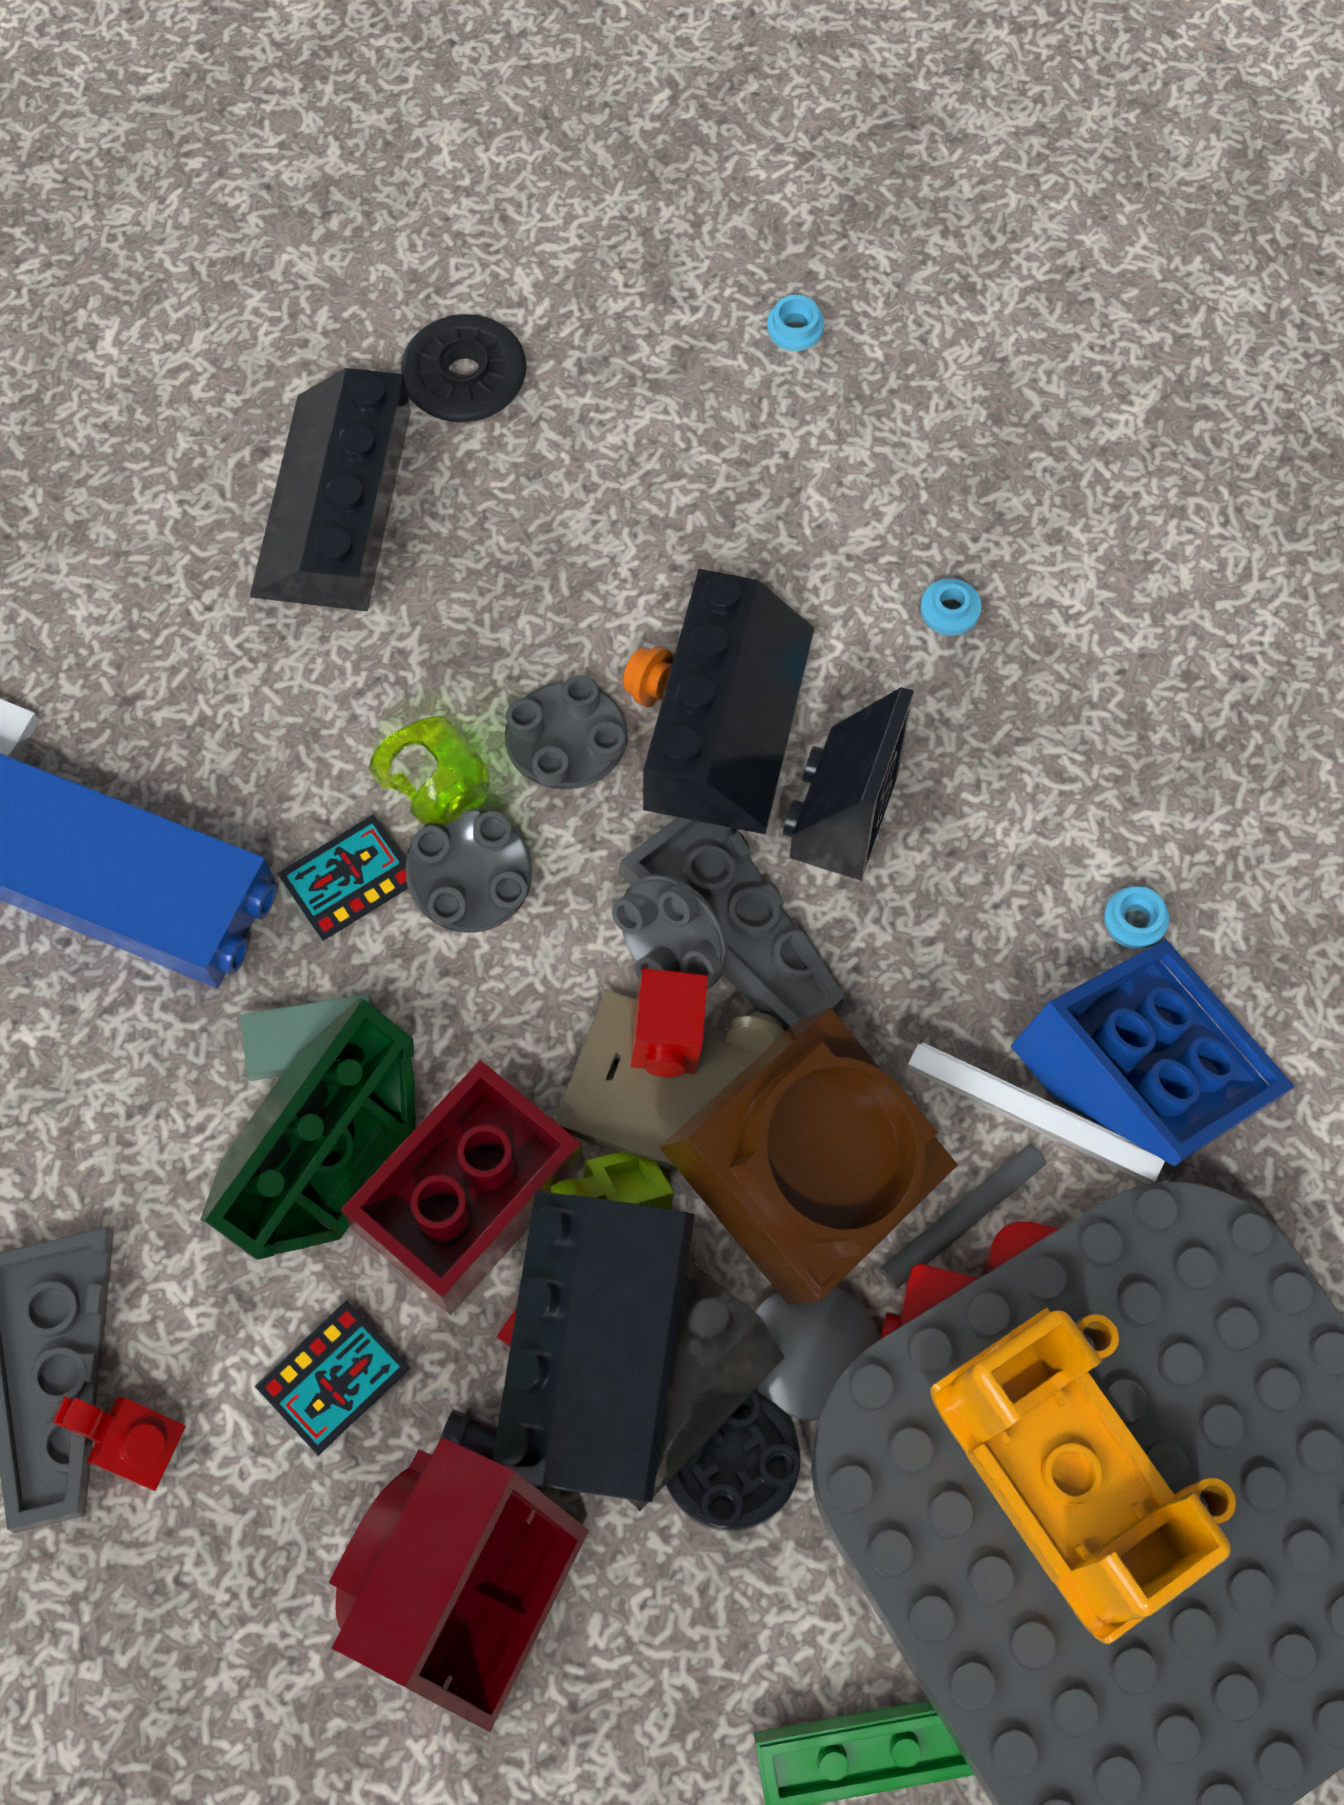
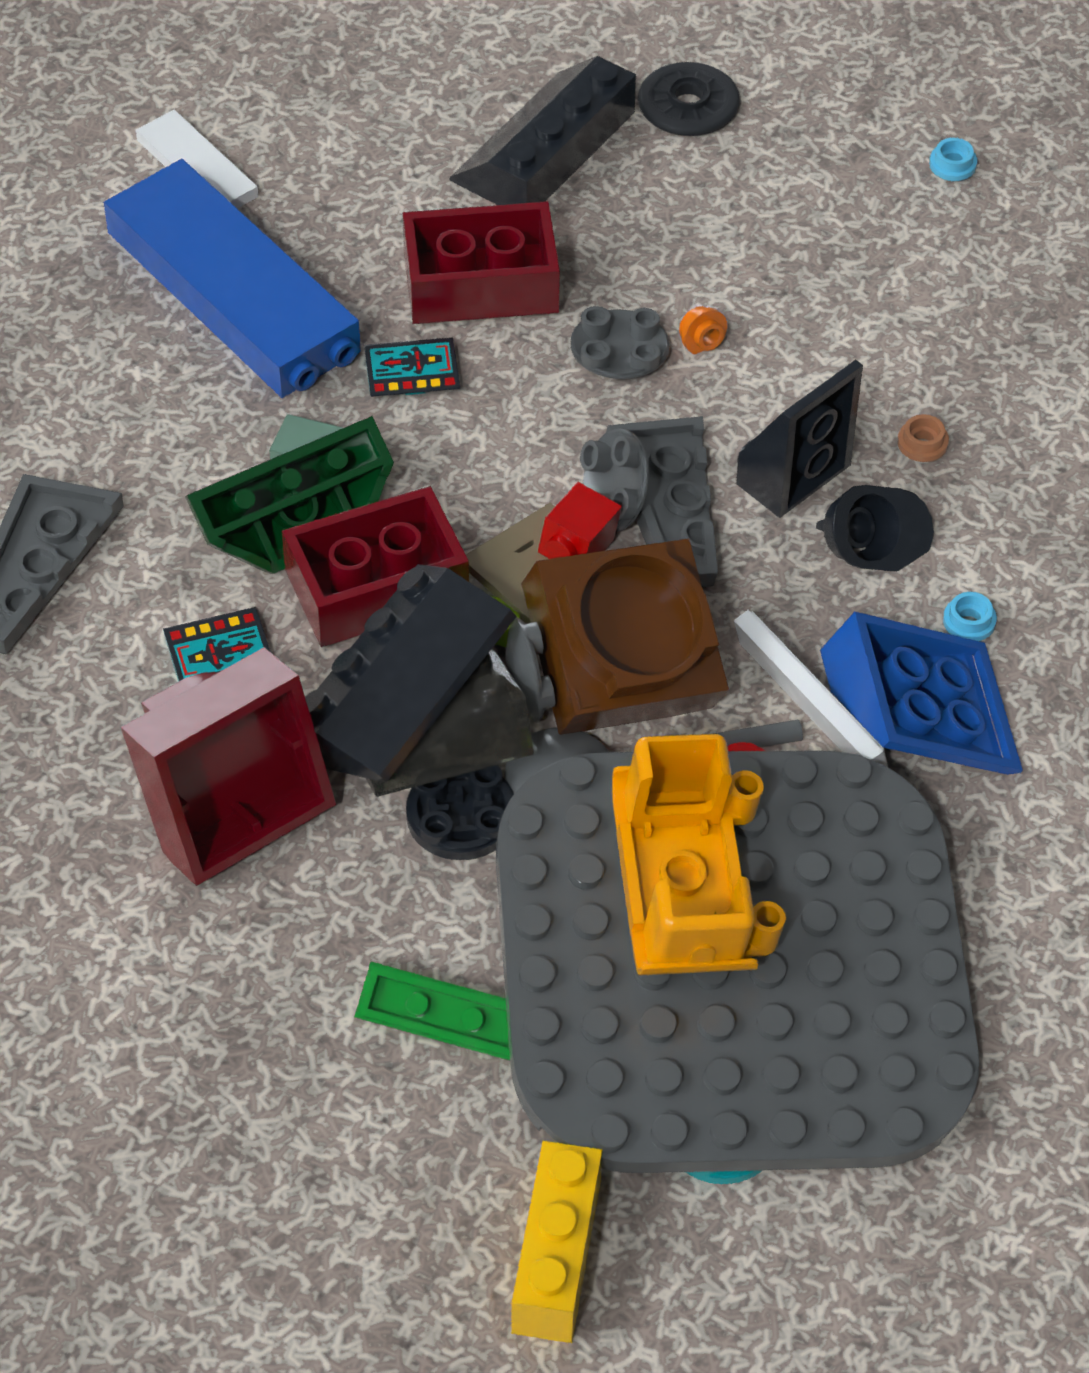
camera: 25 degrees right, 15 degrees down
(127, 1440) = (62, 619): red plate -> none
(350, 694) = (481, 262): none -> dark red brick
(455, 786) = (514, 336): clear neon green helmet -> none
(469, 871) = (498, 394): dark grey dish -> none
(718, 1255) = (522, 646): none -> dark grey dish
(727, 705) = (744, 362): black slope -> none
(945, 620) = (954, 385): medium azure plate -> none
(961, 689) = (927, 428): none -> nougat plate
(983, 855) = (884, 521): none -> black piece

